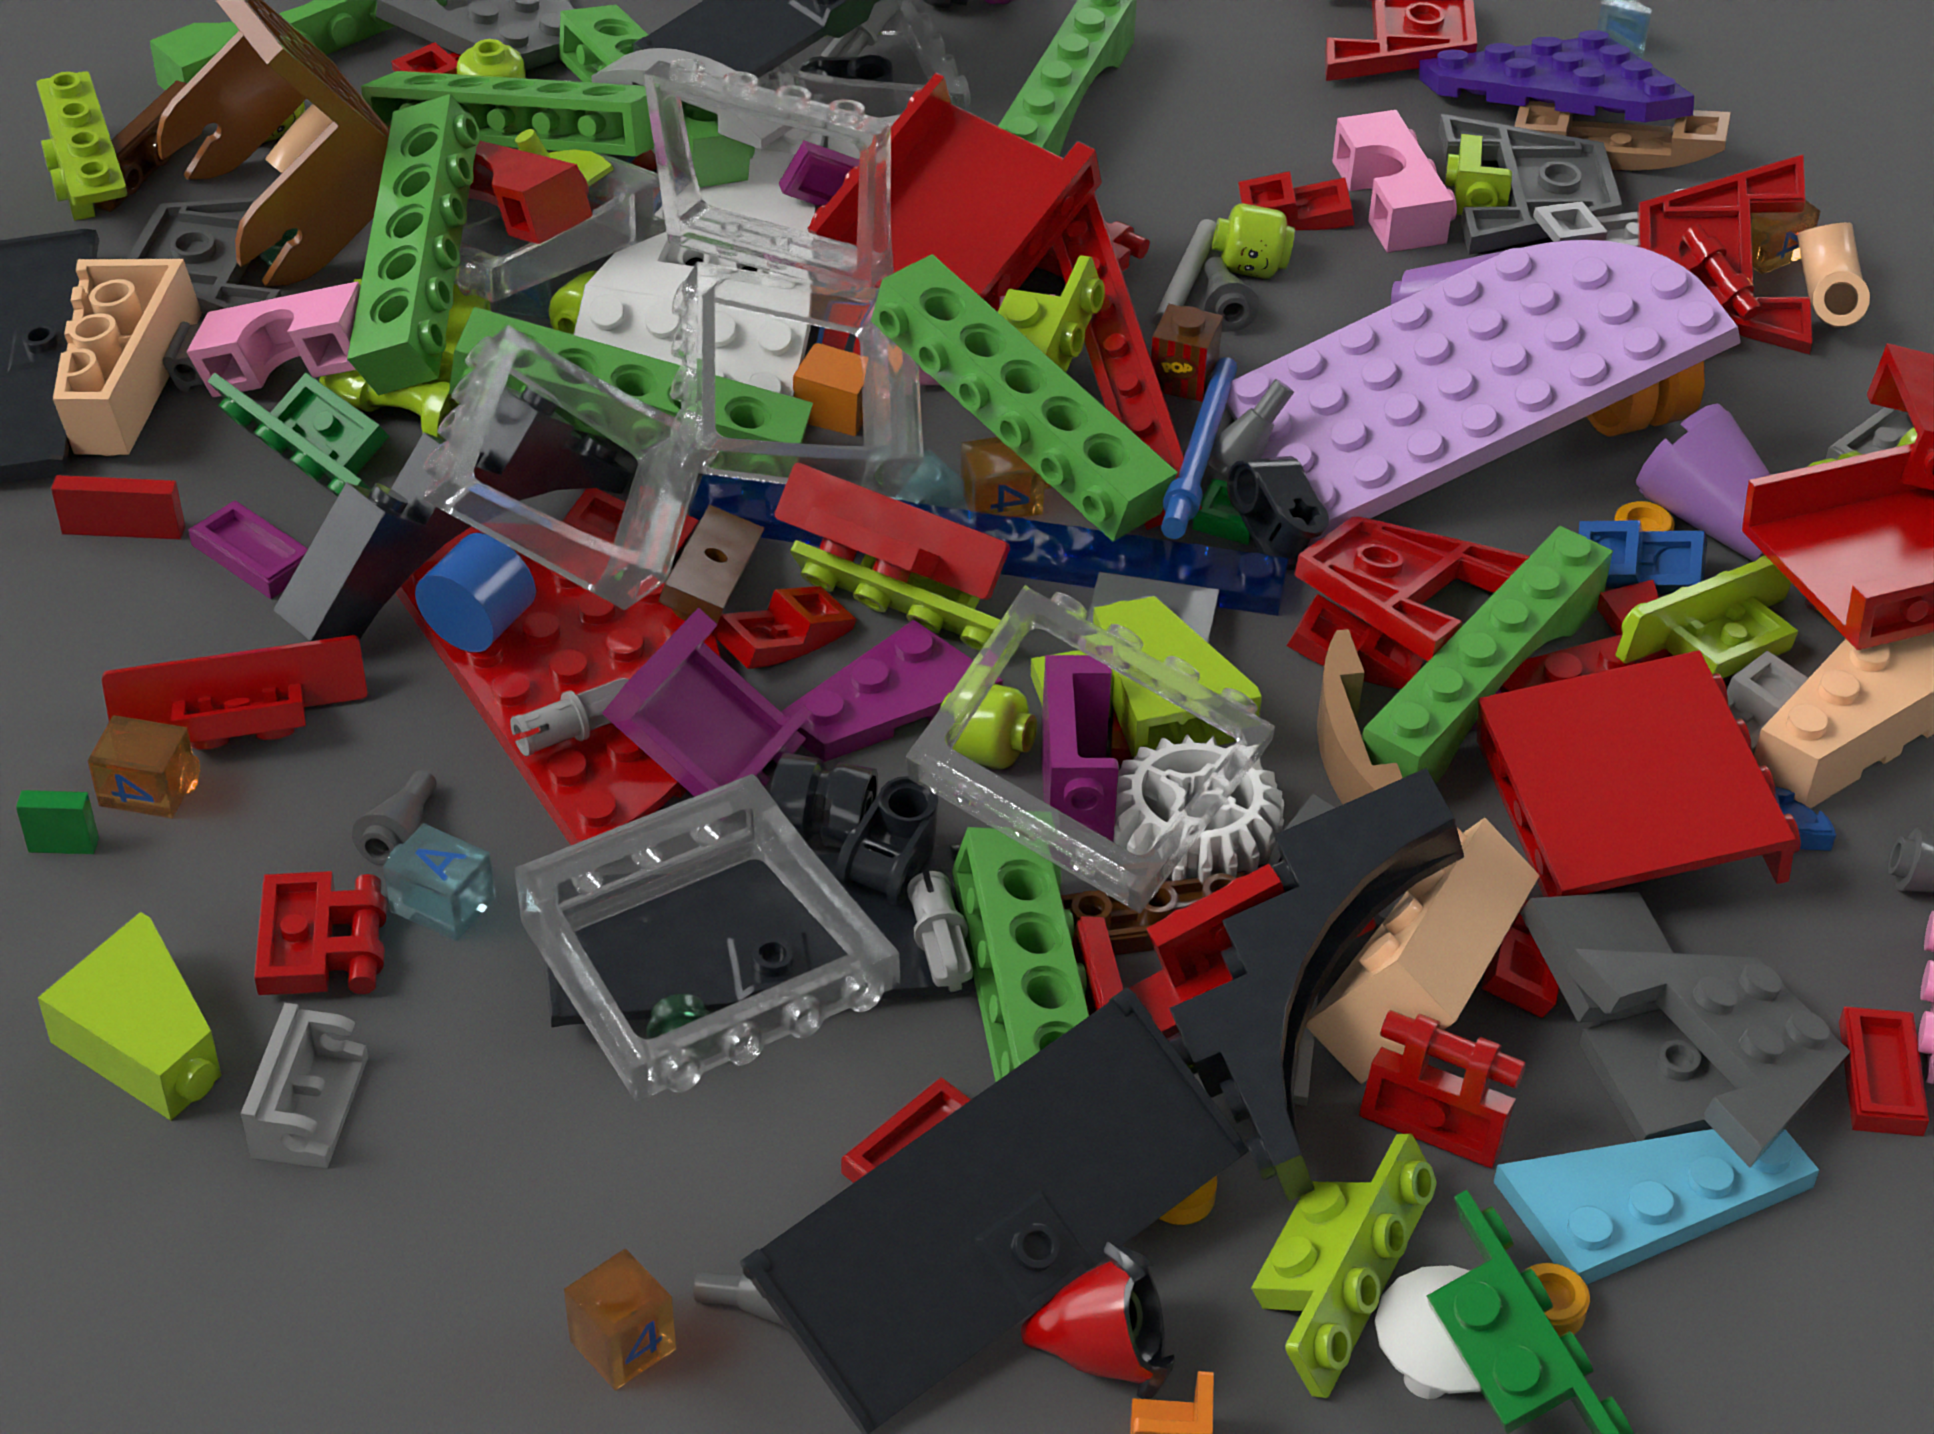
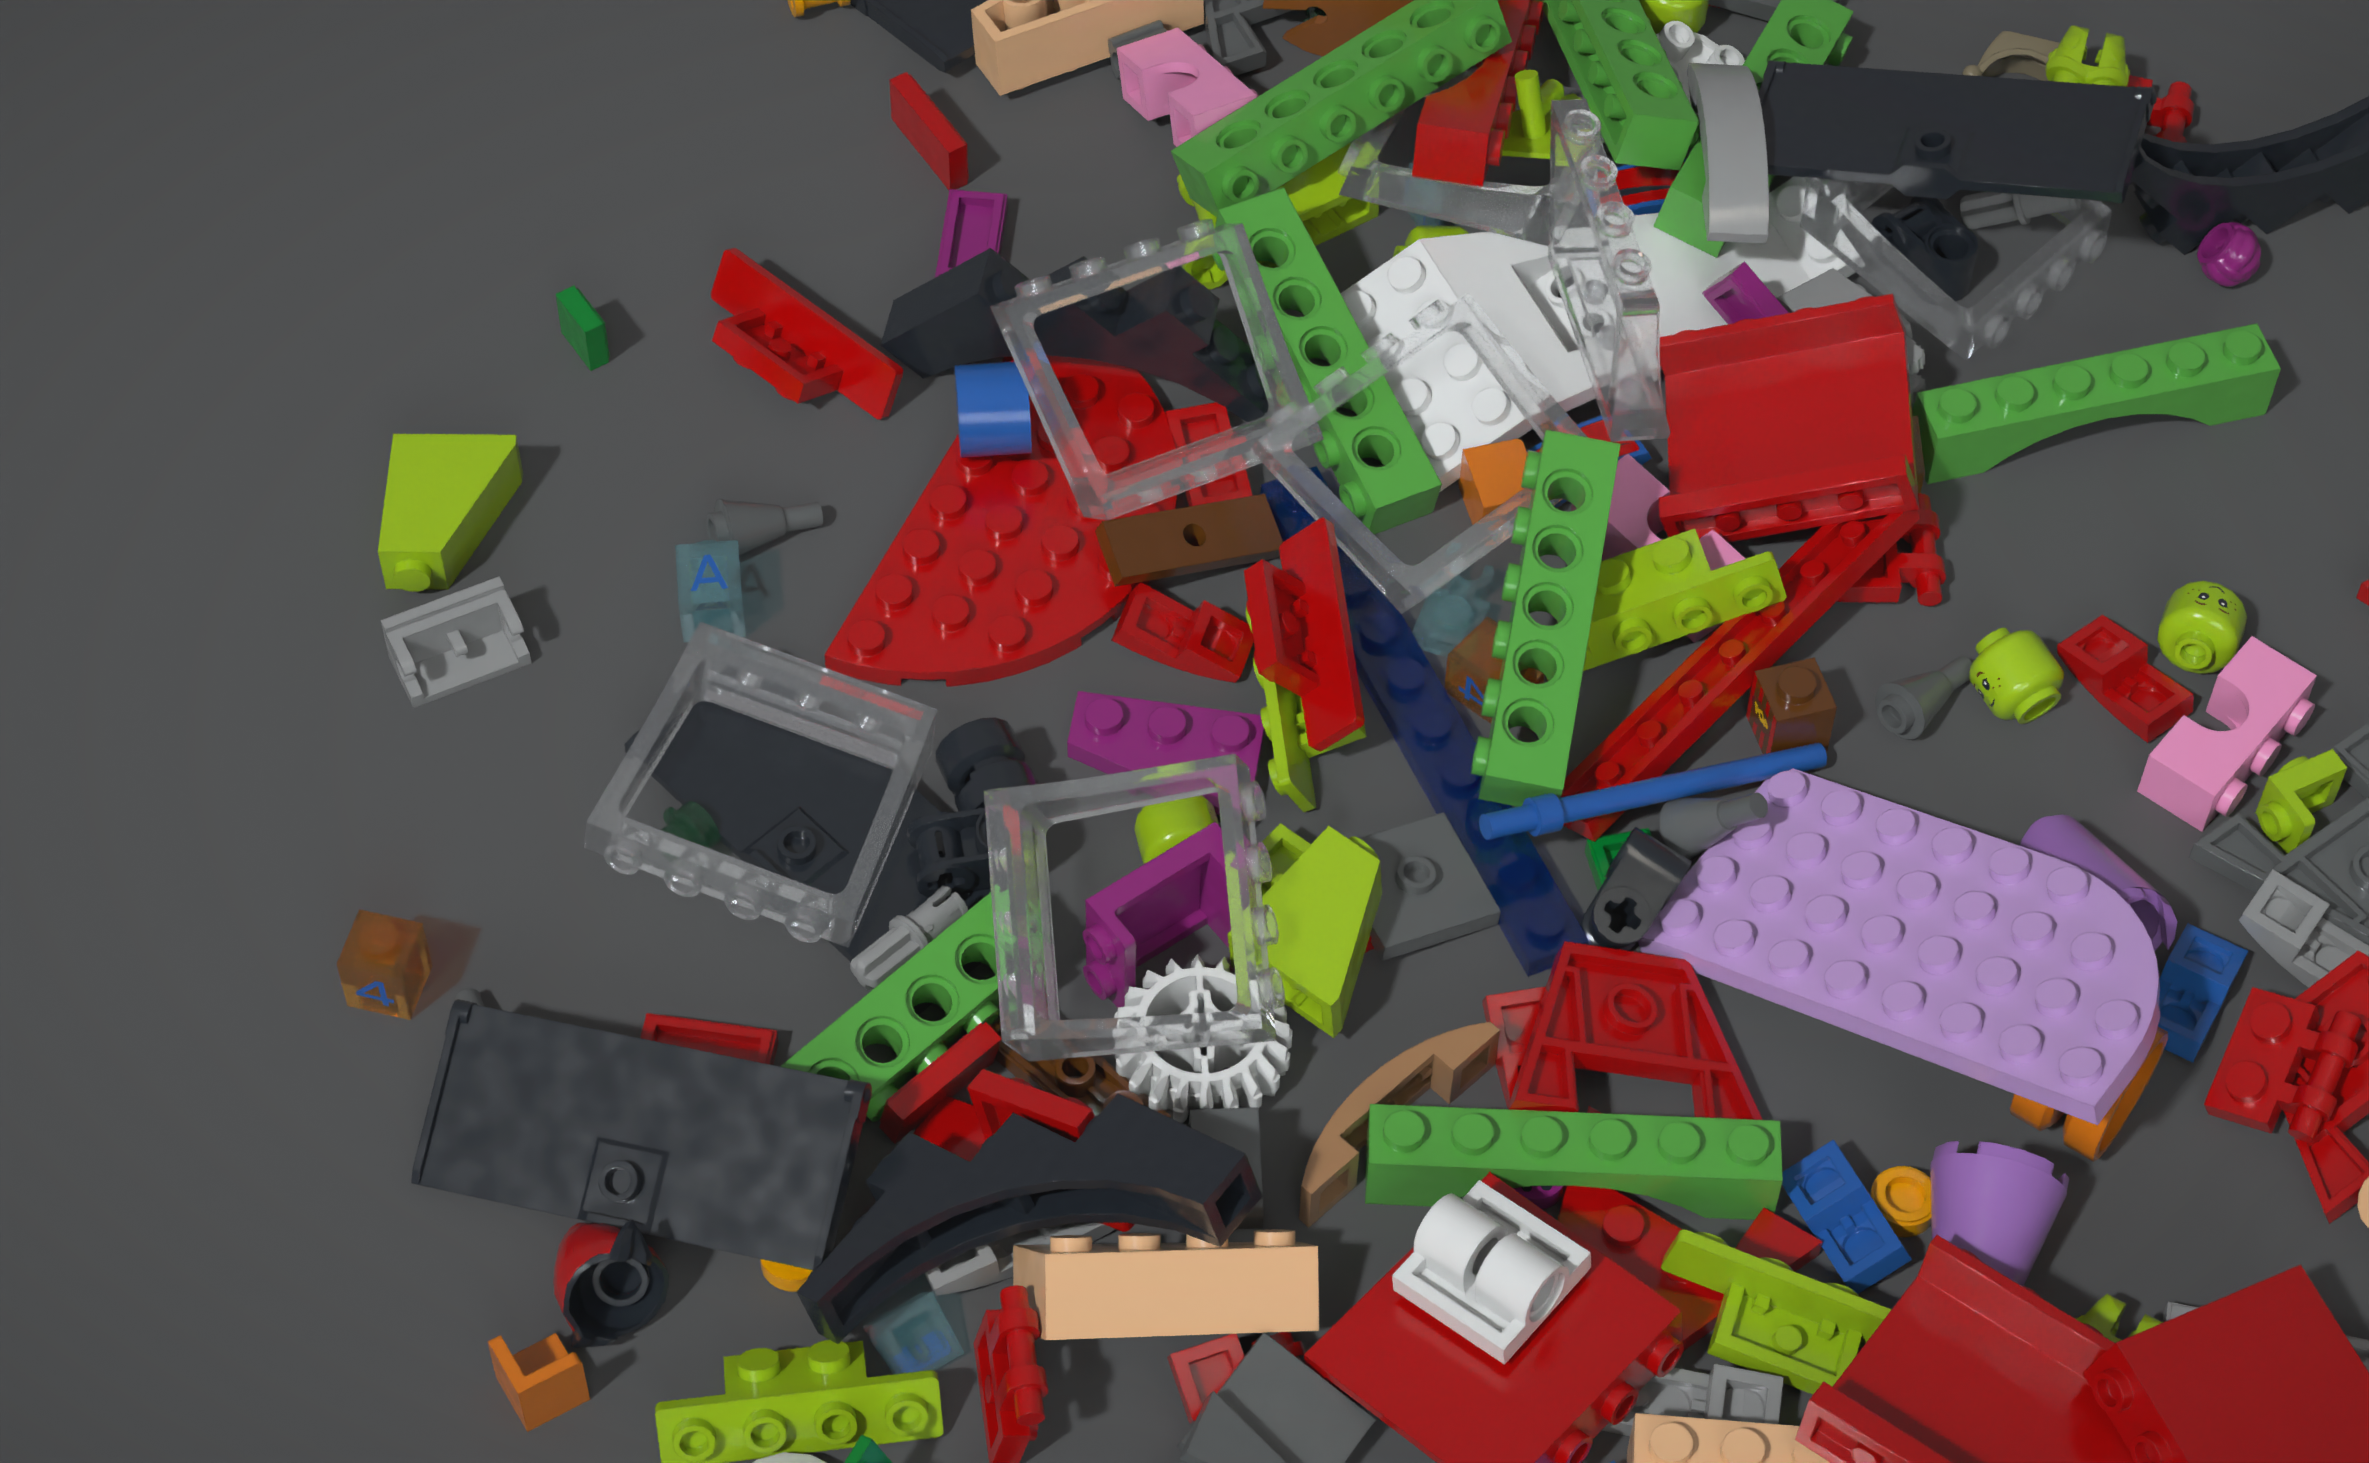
camera: 55 degrees right, 10 degrees up
(143, 767) = (676, 337): clear orange brick -> none
(297, 937) = (599, 538): red plate -> none
(314, 424) = (1119, 185): green bracket -> none
(566, 718) = (934, 560): light grey axle -> none
(701, 714) = (1006, 642): magenta panel -> none
(1188, 268) = (1918, 654): light grey bar -> none
(1296, 143) = (2203, 622): none -> lime head
(1332, 1145) = (914, 1336): none -> clear light blue slope
(1593, 728) = (1489, 1269): none -> white plate

